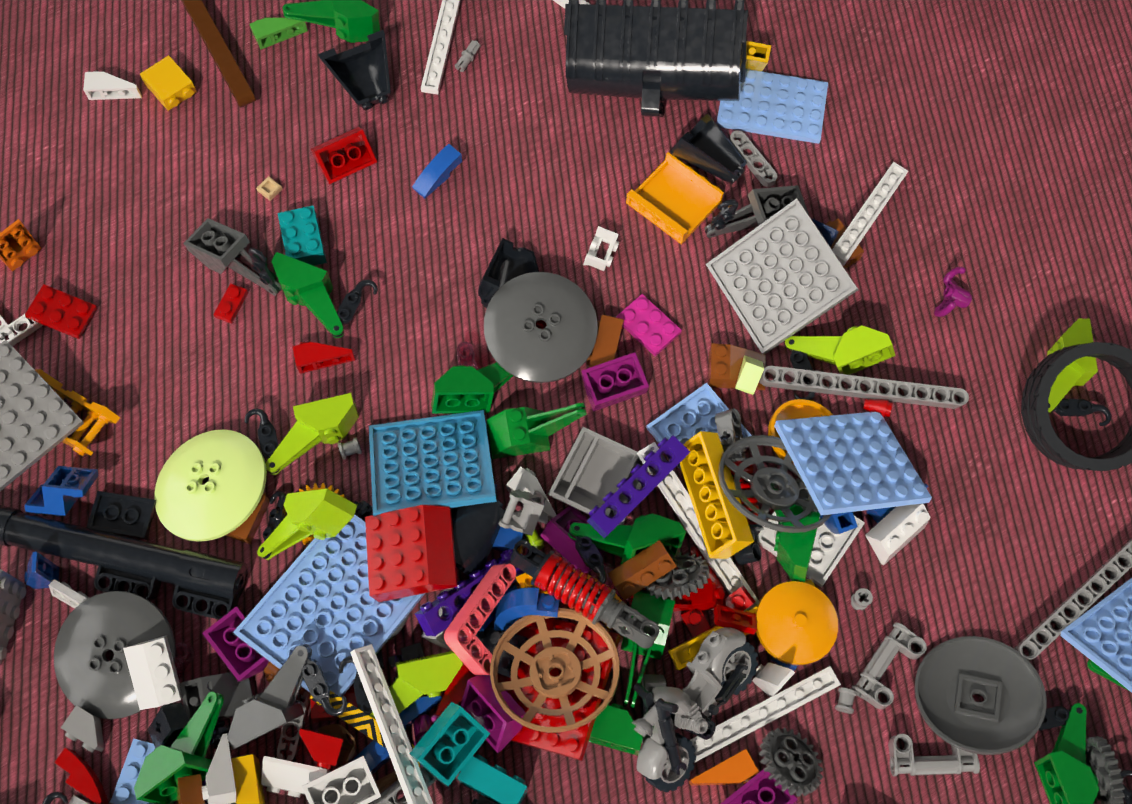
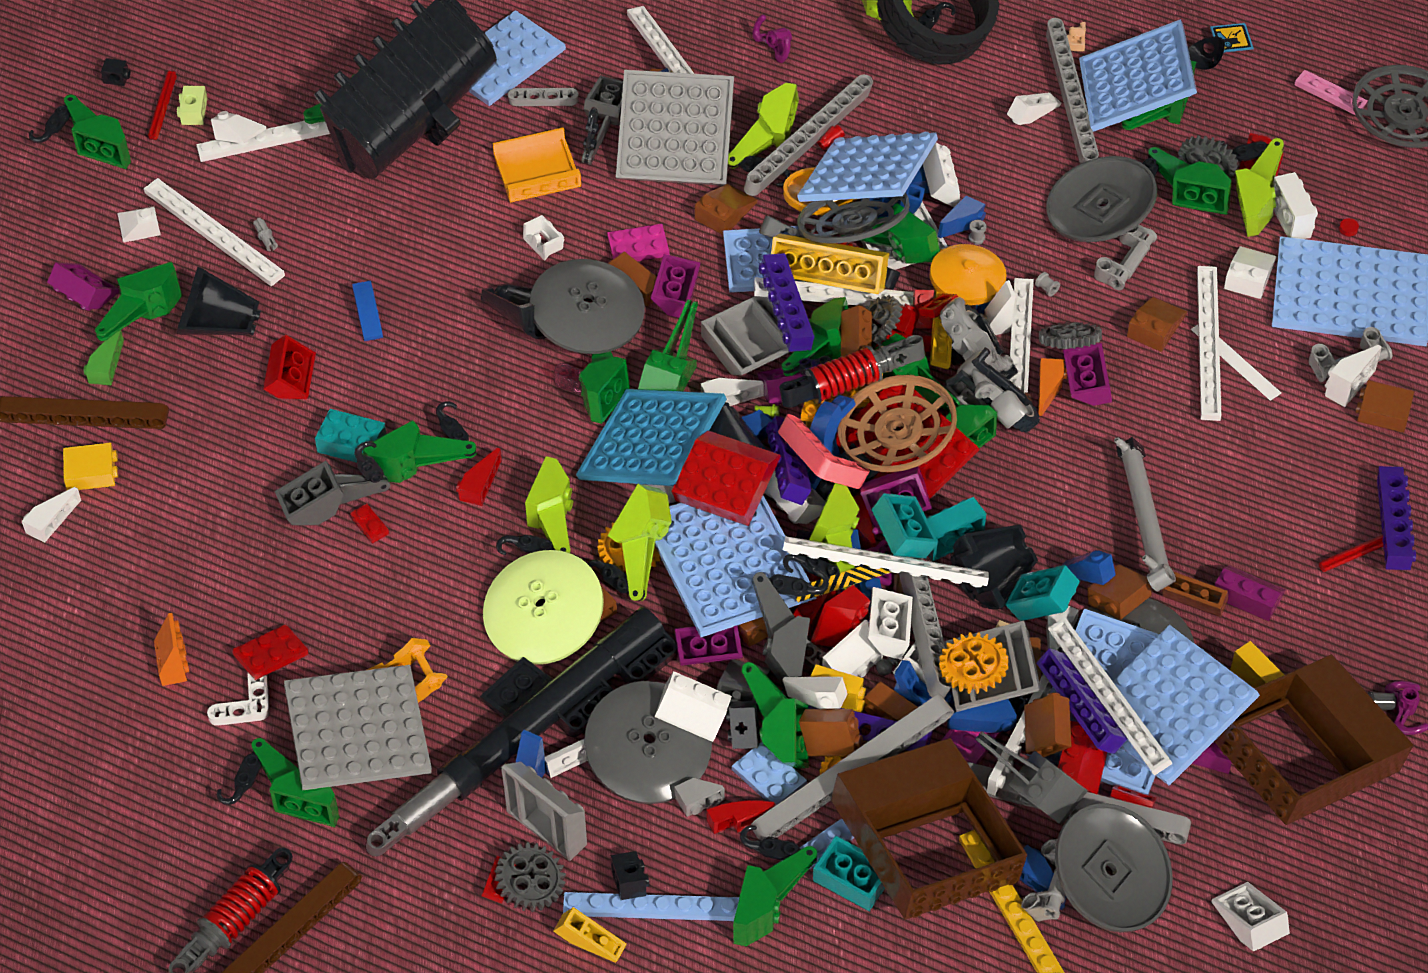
camera: 55 degrees left, 15 degrees down
(61, 490) = (464, 714): blue bracket -> none
(269, 188) = (273, 443): tan tile -> none
(349, 448) = (586, 496): light grey bush -> none
(526, 519) = (753, 390): light grey piece -> none
(710, 151) = (513, 117): black cone -> none
(749, 375) = (742, 194): yellowish green slope -> none
(874, 577) = (961, 216): none -> blue slope
(881, 661) = (1027, 229): light grey piece -> none
(1049, 561) = (1031, 107): none -> white slope

